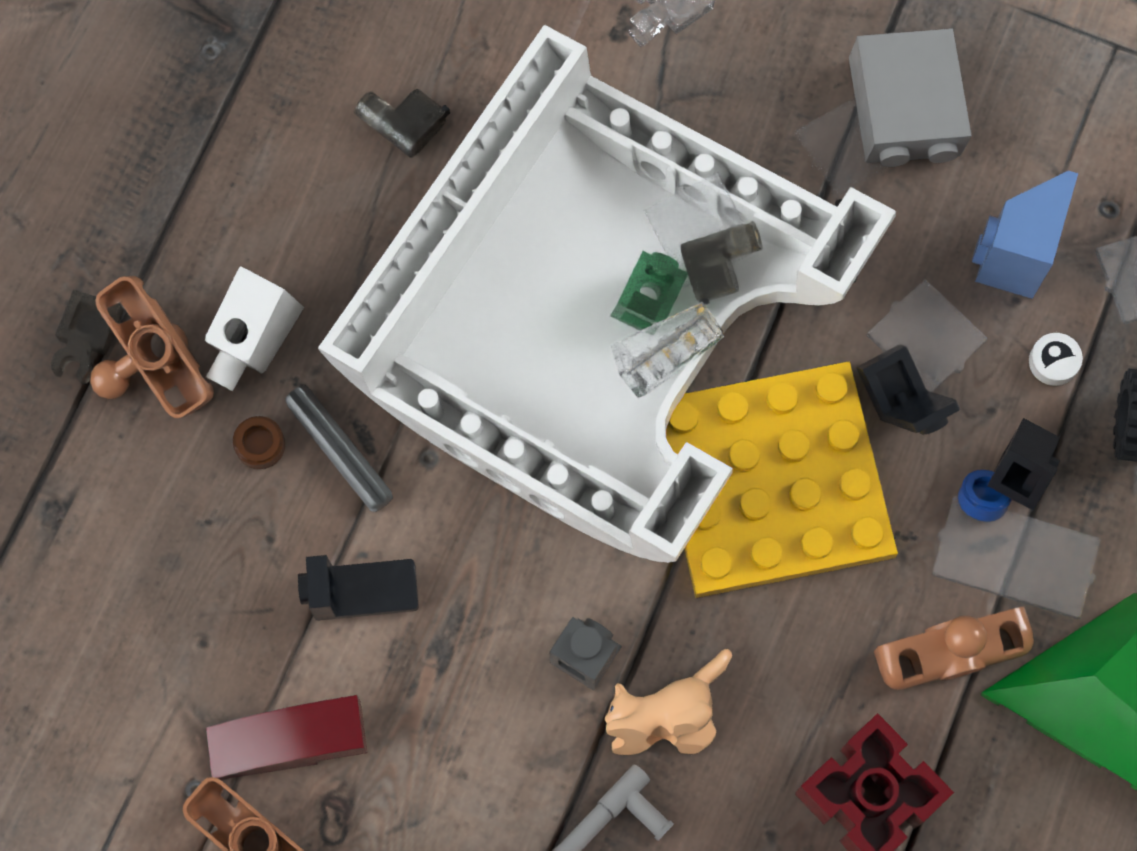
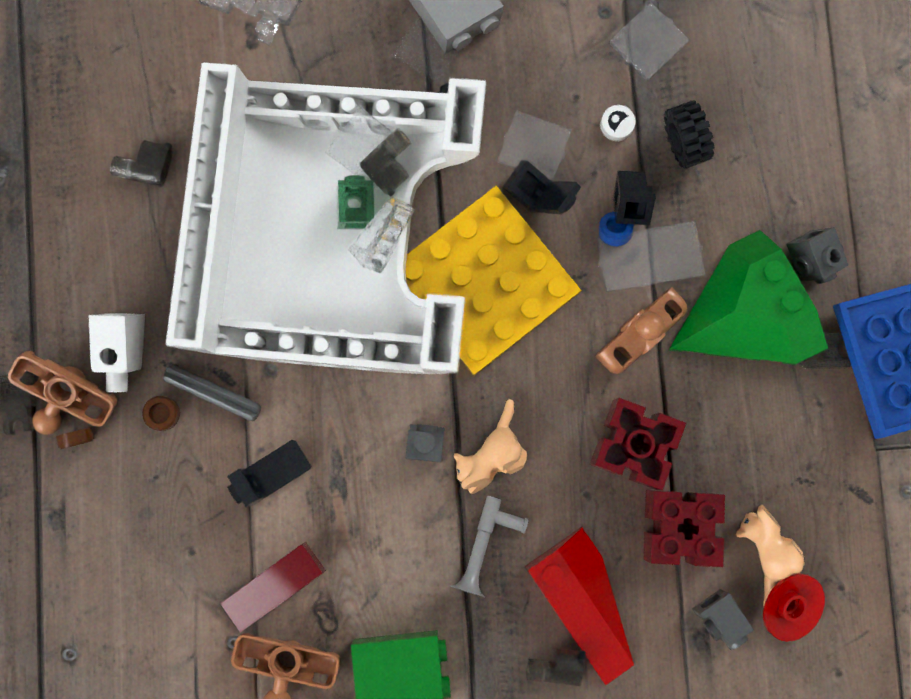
camera: 30 degrees left, 10 degrees up
(134, 418) = (75, 438): none -> reddish brown tile
(1024, 238) = (567, 55): medium blue slope -> none

